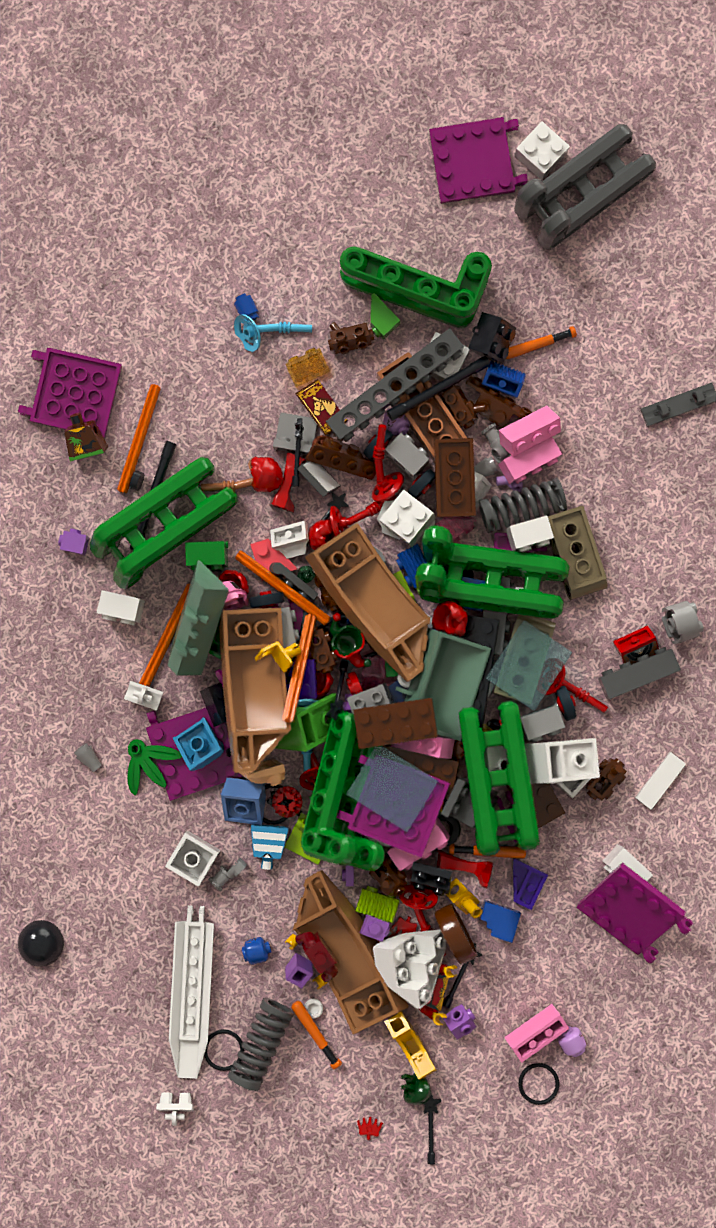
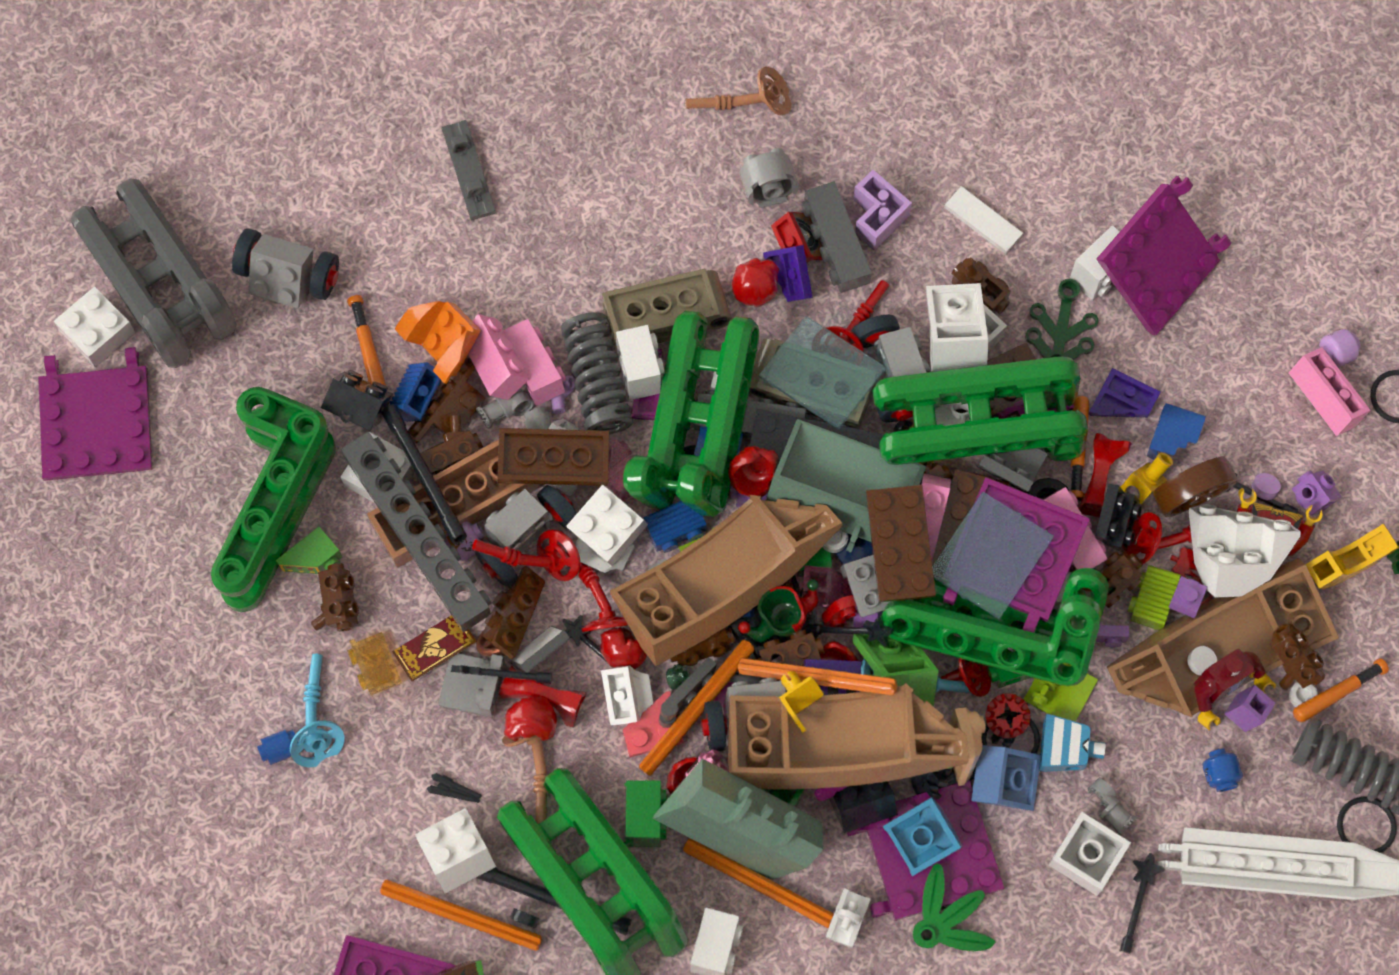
camera: 90 degrees left, 15 degrees down
(177, 430) = (455, 850): none -> white brick
(183, 897) = (1145, 874): none -> black piece
(223, 426) = (449, 788): none -> black piece
(333, 937) = (1201, 659): none -> white tile
(335, 1004) = (1299, 659): none -> reddish brown brick
(464, 985) = (1266, 486): none -> lavender tile
(547, 396) = (443, 332): none -> orange piece
(574, 838) = (1060, 333): none -> dark green plant
(590, 277) = (283, 269): none -> light grey brick
(600, 615) = (755, 282): none -> red hair
(609, 641) = (792, 273): none -> dark purple wing
(662, 708) = (884, 208): none -> lavender brick

